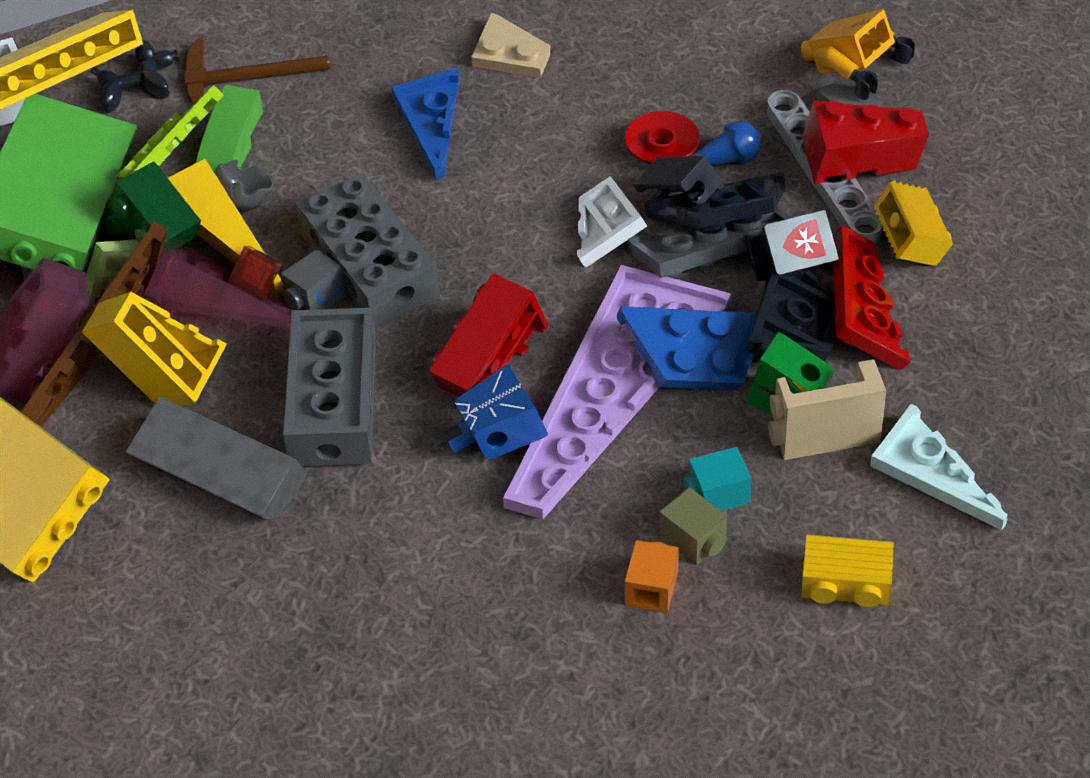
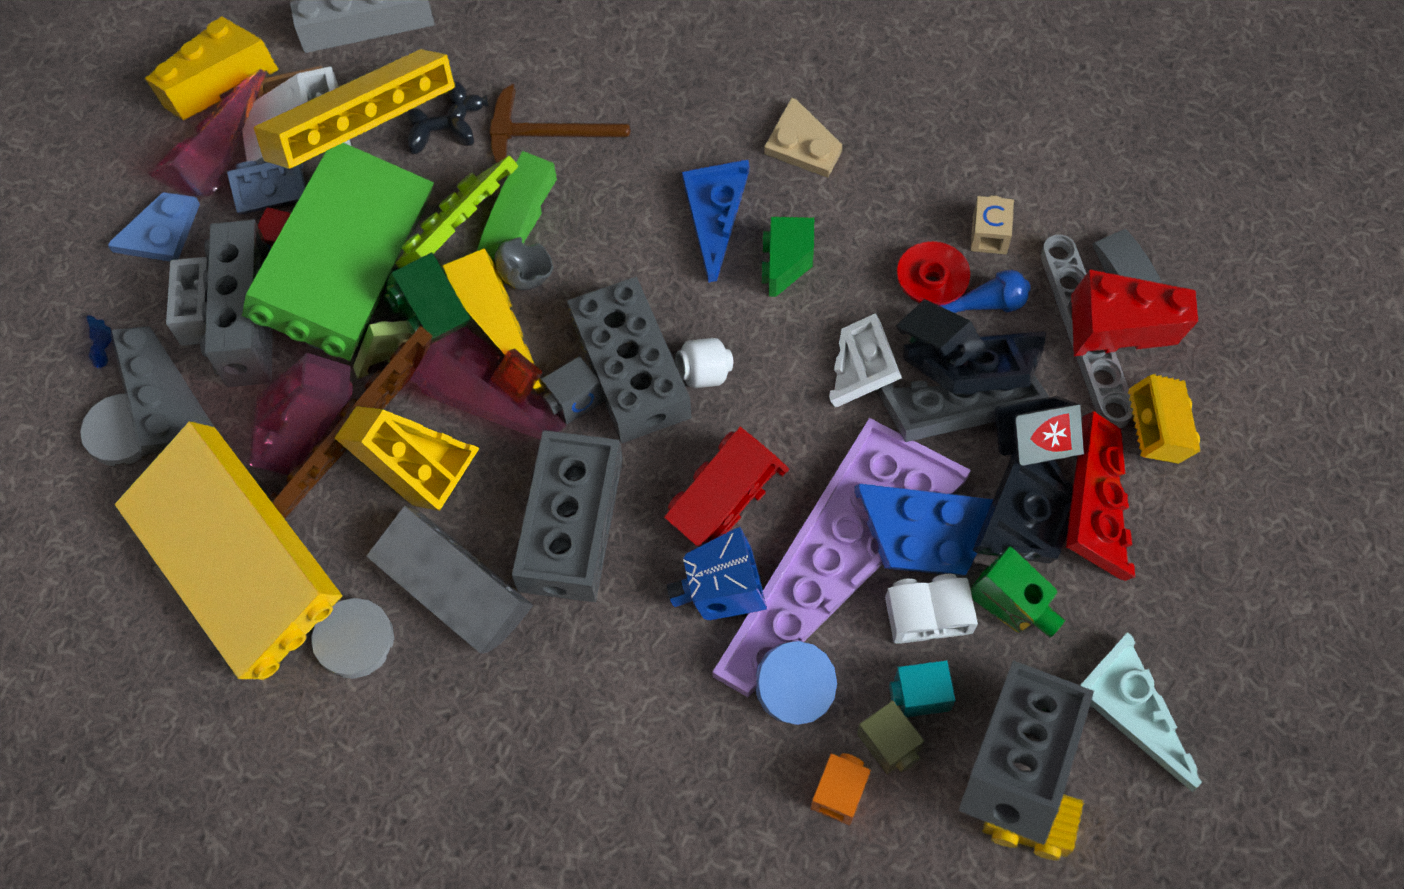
camera: 10 degrees right, 15 degrees up
(122, 530) = (353, 638): none -> light grey tile
(446, 241) = (704, 362): none -> white head
(514, 139) = (790, 251): none -> green slope
(589, 494) = (795, 682): none -> medium blue tile
(713, 91) = (992, 225): none -> tan brick
(713, 415) = (930, 609): none -> white brick
(828, 492) = (1020, 798): none -> dark grey brick
(829, 416) = (1048, 643): tan panel -> none
(853, 45) = (1138, 197): light orange torso -> none

